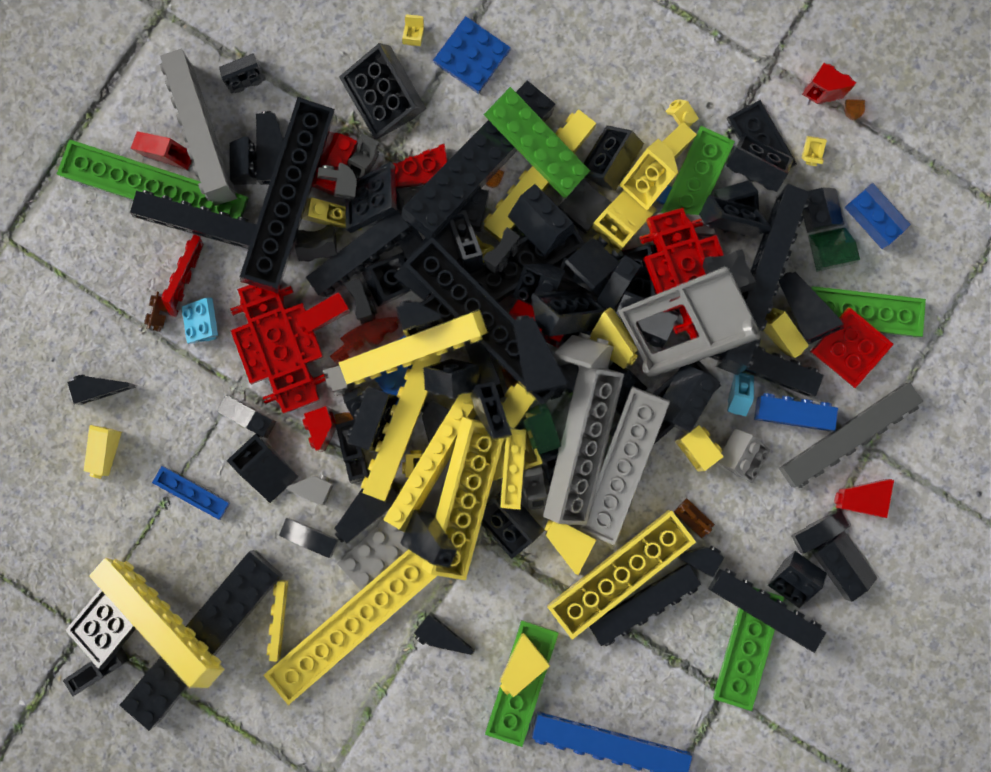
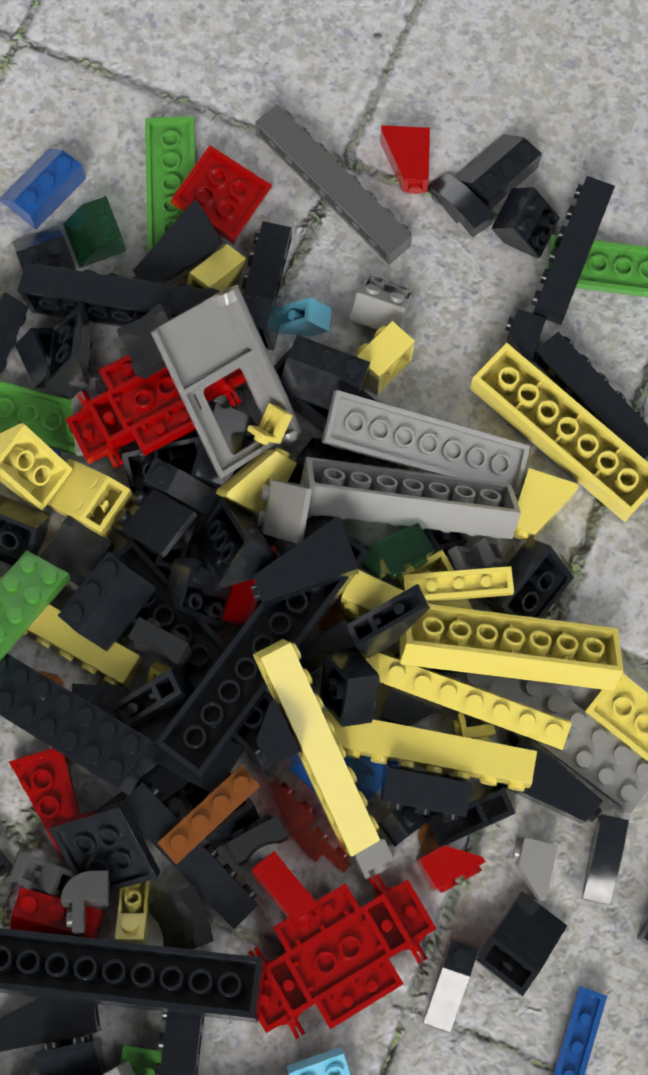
camera: 100 degrees left, 10 degrees down
(381, 268) = (208, 814): none -> dark orange plate
(428, 539) = (578, 679): black slope -> none
(653, 354) = (272, 425): none -> light yellow bracket
(694, 518) = (474, 354): reddish brown hinge -> none
(796, 413) = (316, 250): blue brick -> none

